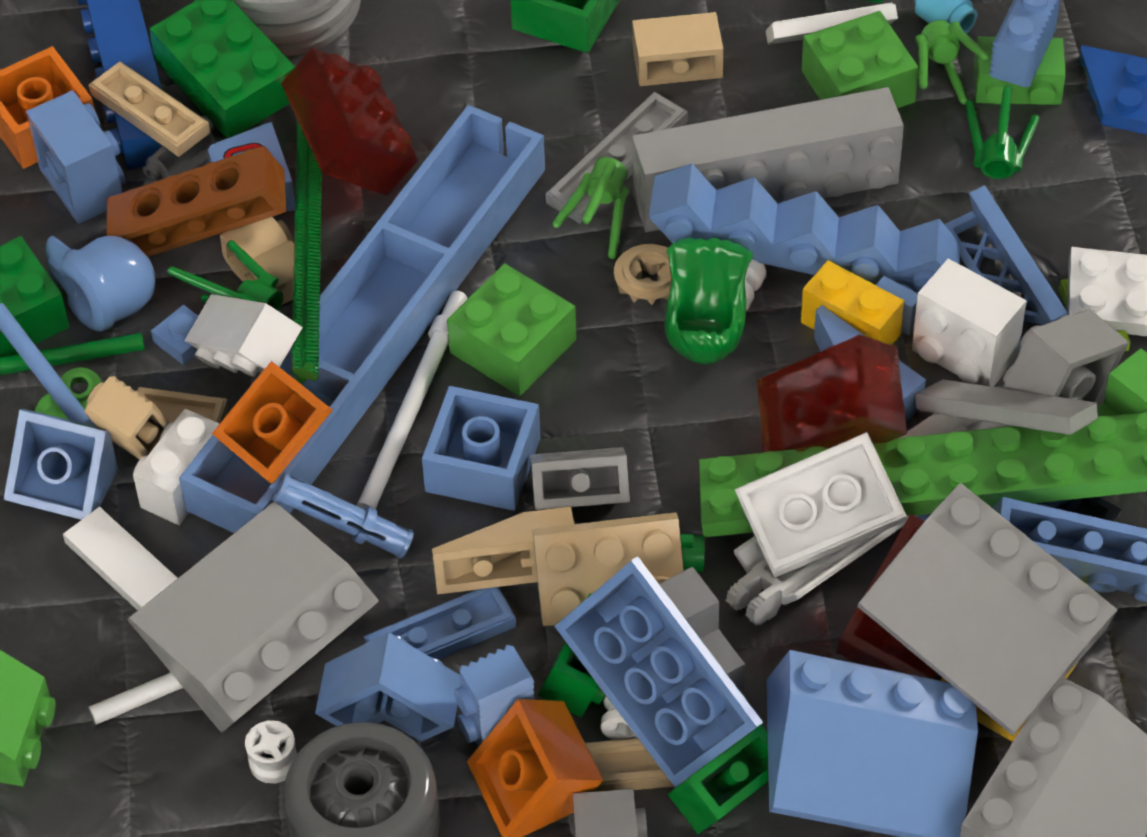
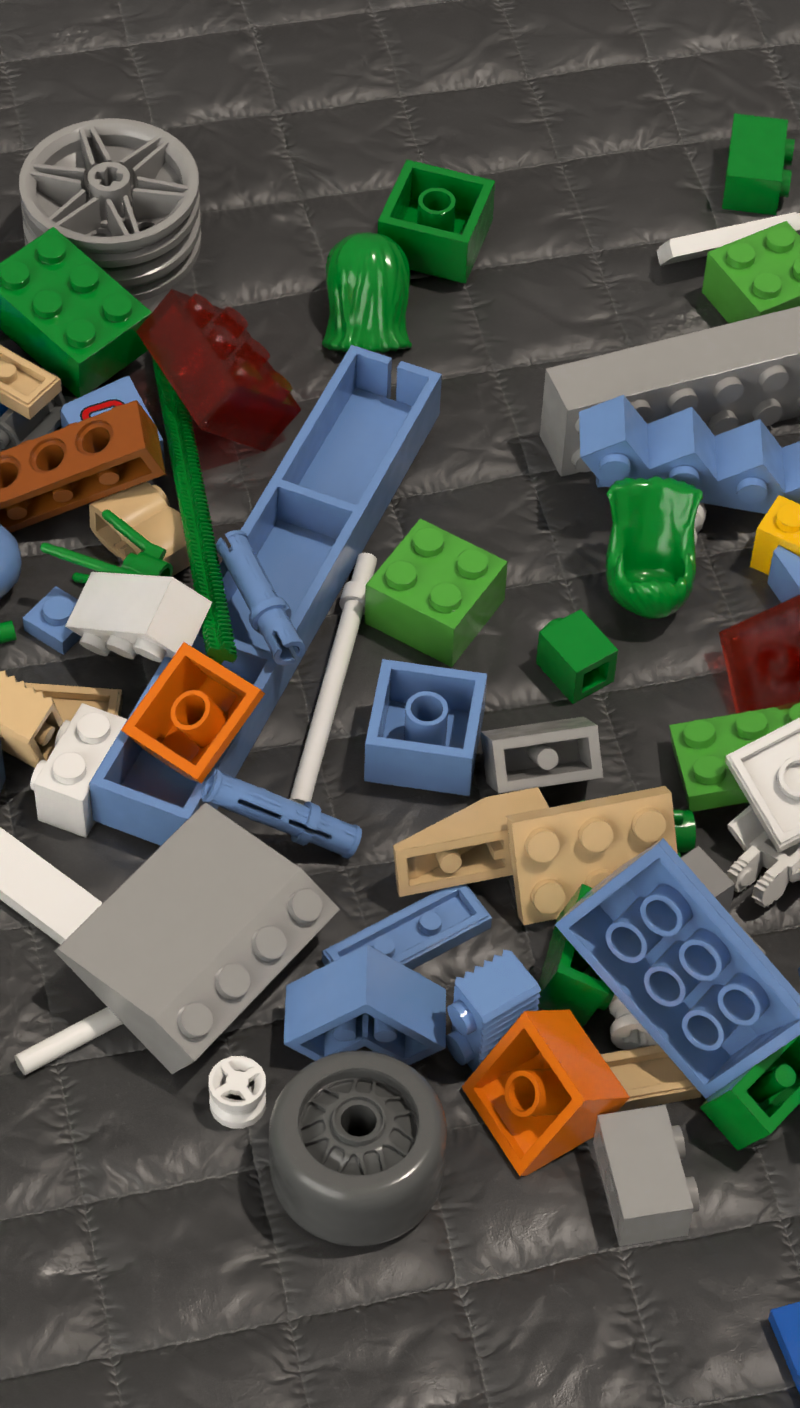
camera: 10 degrees left, 0 degrees up
(353, 338) = (268, 612): none -> medium blue pin
(495, 59) = (367, 294): none -> green piece
(603, 186) = (512, 428): bright green plant -> none
(627, 393) = (576, 656): none -> green brick
(629, 272) = (575, 506): tan gear -> none
(652, 115) = (512, 398): light grey tile -> none
(677, 49) = (566, 274): tan brick -> none

